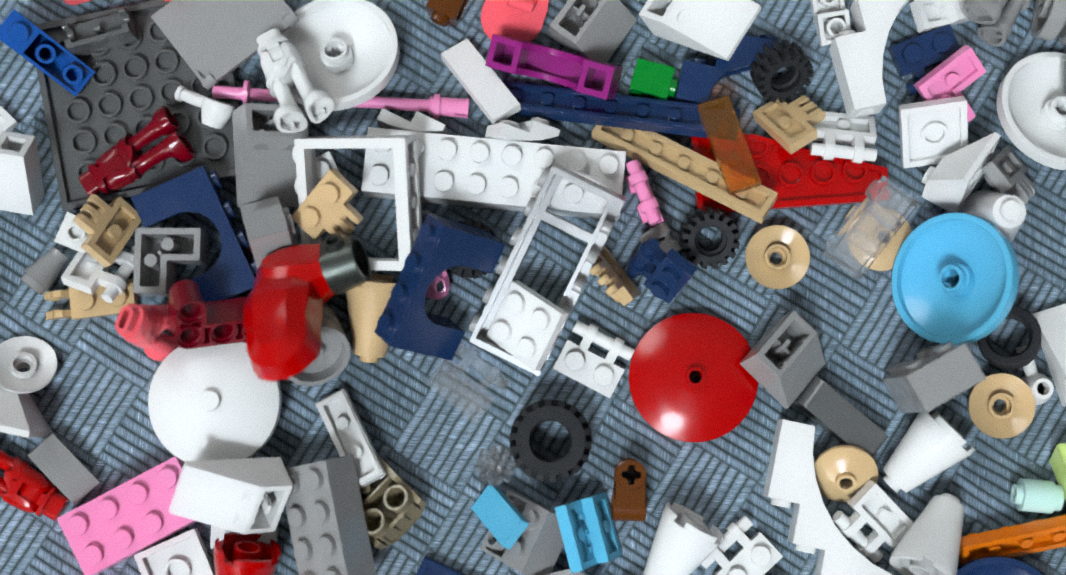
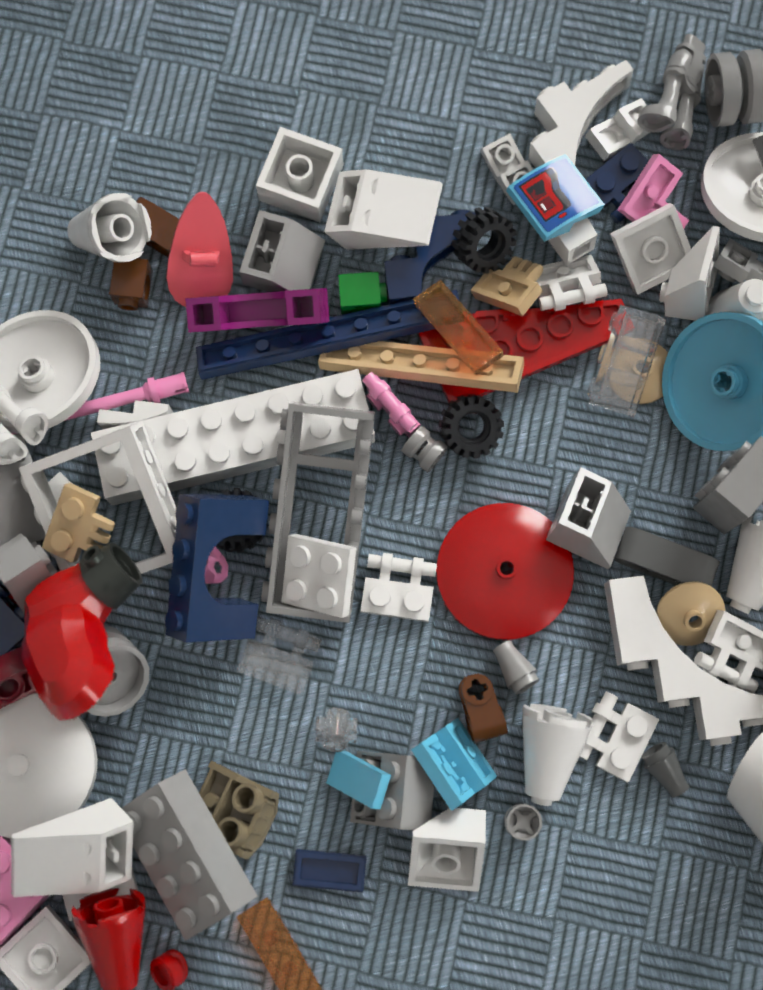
camera: 20 degrees left, 5 degrees down
(350, 436) = (177, 752): white tile -> none
(364, 308) = (147, 614): tan cone -> none
(480, 81) = (190, 351): white tile -> none
(527, 131) = (258, 380): white slope -> none
(550, 469) = (414, 684): black tyre -> none
(611, 274) = (385, 495): tan hinge -> none
(664, 271) = (444, 475): dark blue plate -> none
(672, 468) = (516, 669): none -> light grey cone
(790, 247) = (547, 406): tan dish -> none
(859, 55) = (554, 197): none -> slope

